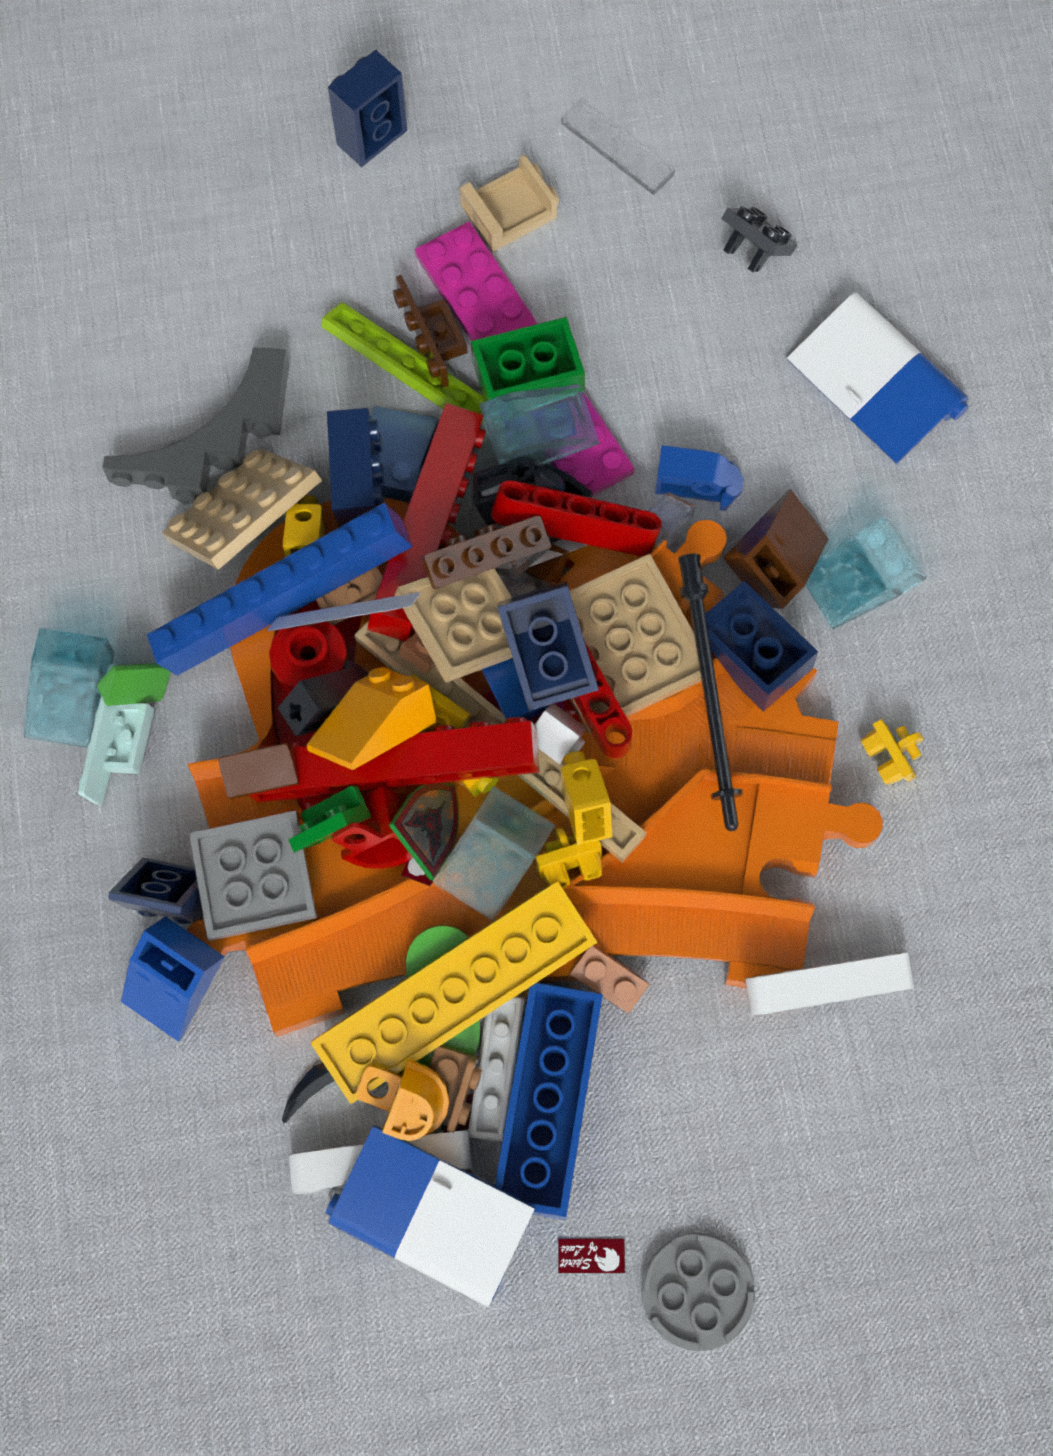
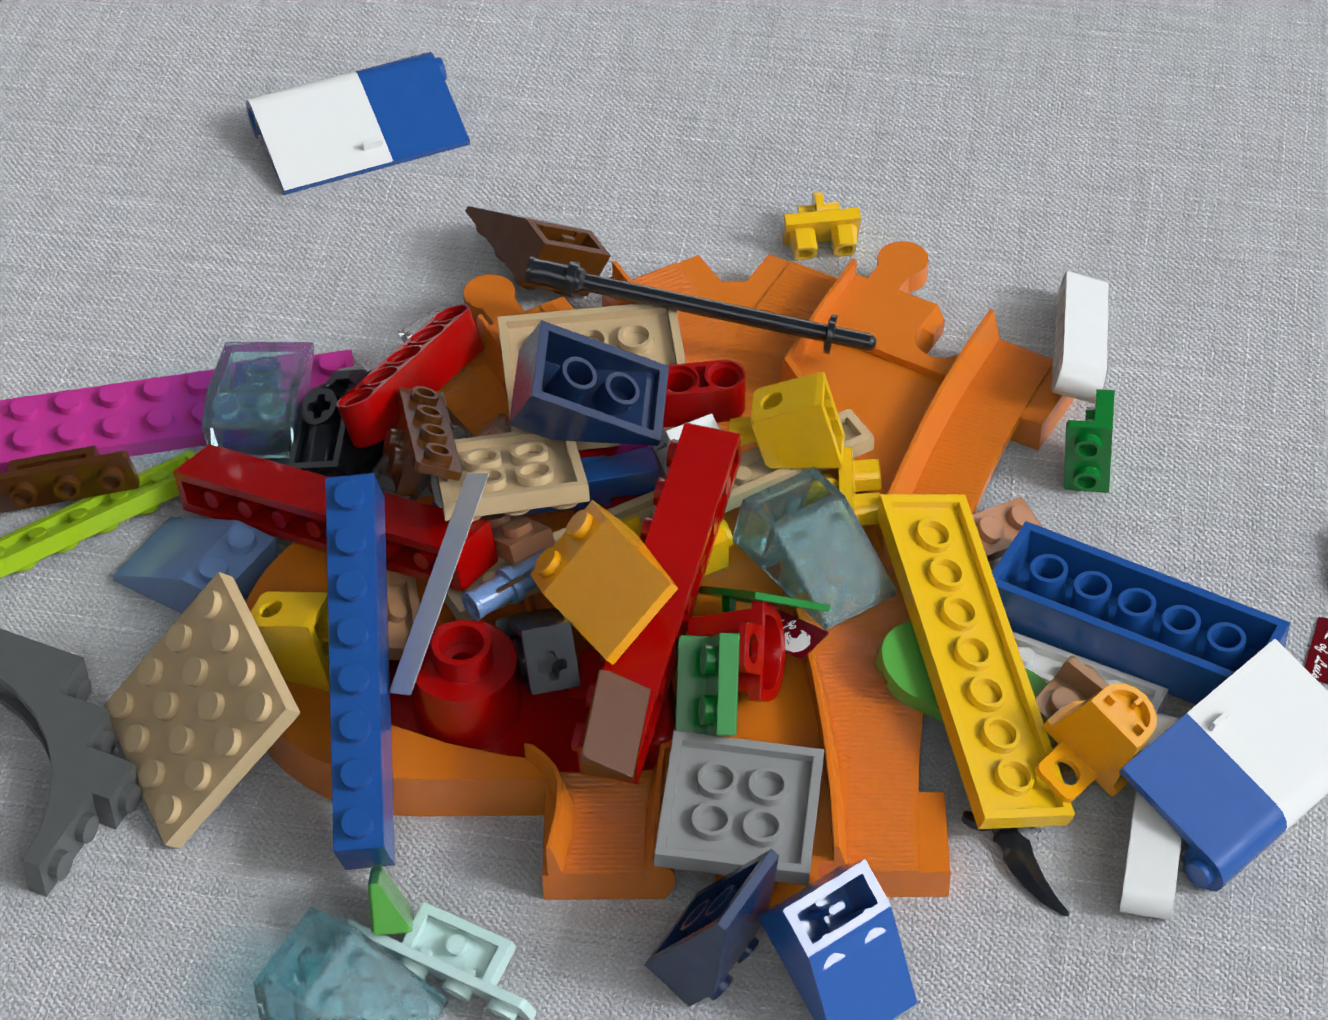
camera: 70 degrees left, 25 degrees down
(354, 463) = (205, 535): dark blue brick -> none
(376, 655) = (485, 598): none -> medium blue pin
(527, 359) = (166, 382): green brick -> none
(698, 476) = (393, 297): blue piece -> none
(721, 1028) = (1090, 447): none -> green bracket
(752, 225) = (103, 156): black plate -> none
(757, 646) = (664, 254): dark blue slope -> none
(863, 573) = (596, 186): clear light blue slope -> none

